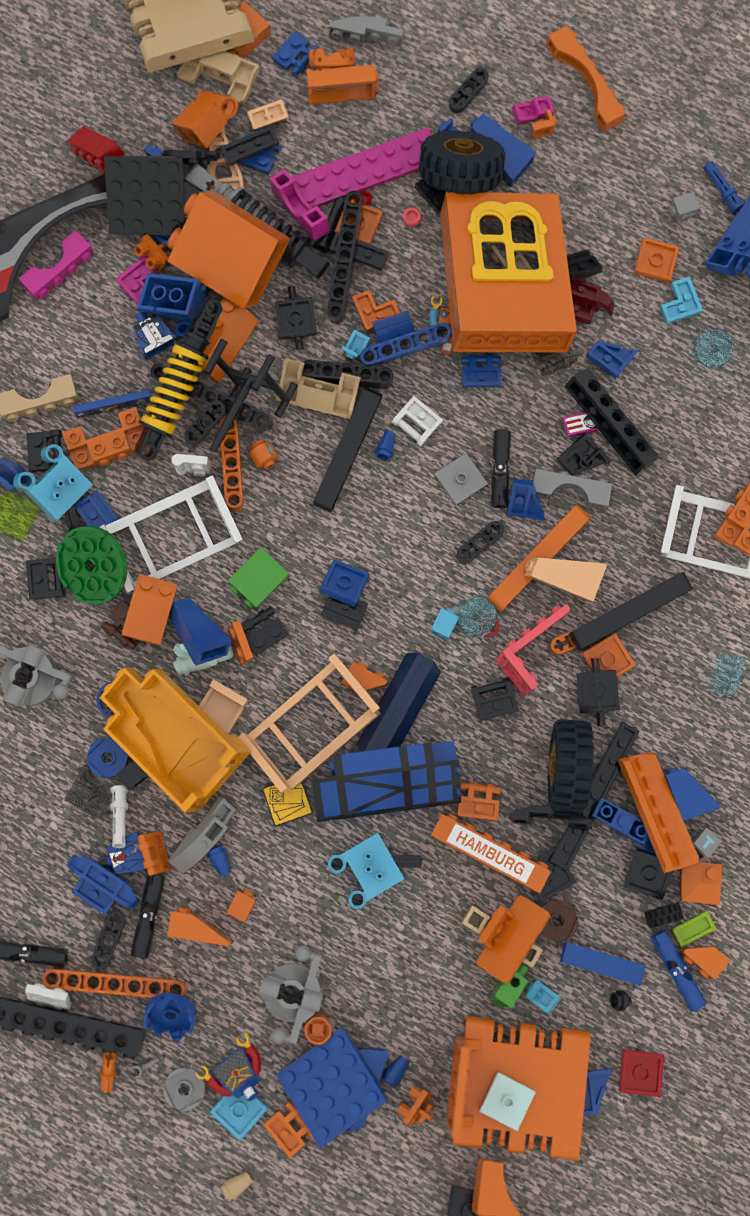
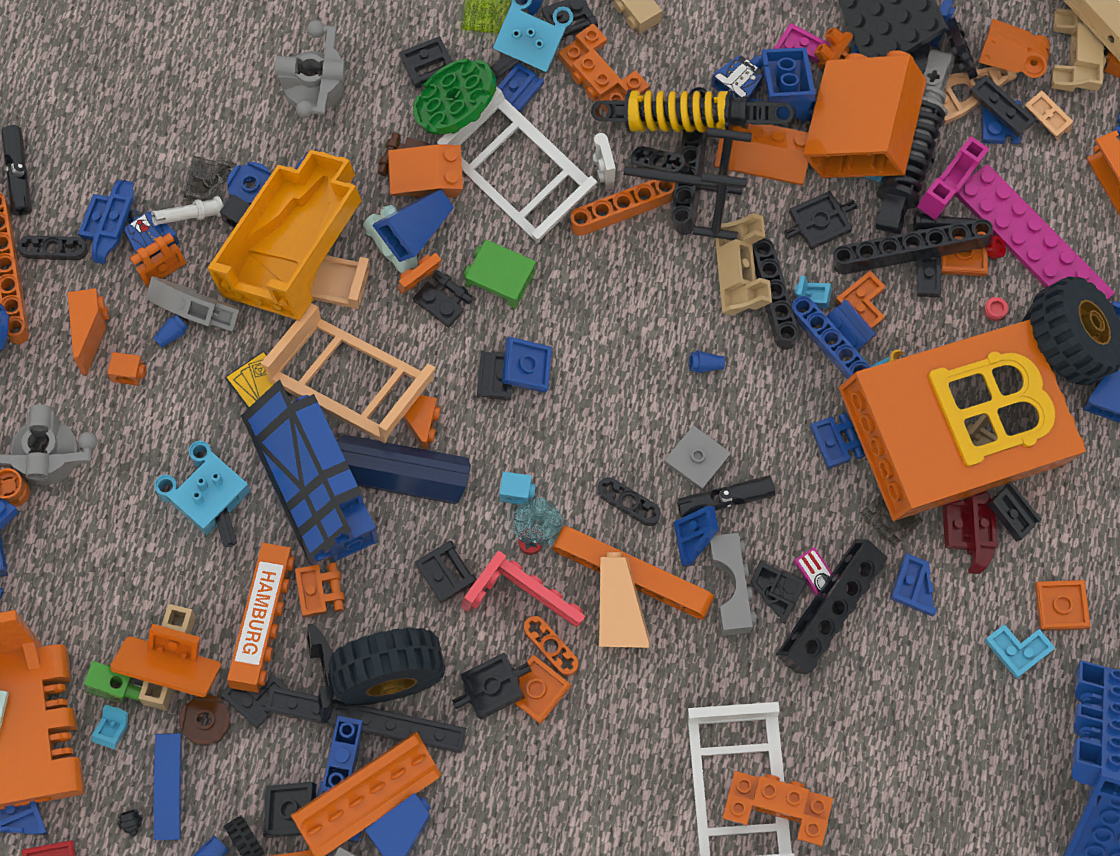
camera: 75 degrees right, 10 degrees down
(112, 404) = (644, 61): blue tile -> none
(145, 927) = (84, 278): black piece -> none
(263, 454) = (646, 235): orange head -> none
(347, 449) = (686, 322): black beam -> none
(421, 416) = (755, 391): white plate -> none
(631, 611) = (604, 697): black beam -> none
(708, 358) = (967, 694): clear light blue plate -> none
(727, 674) = (565, 838): clear light blue panel -> none

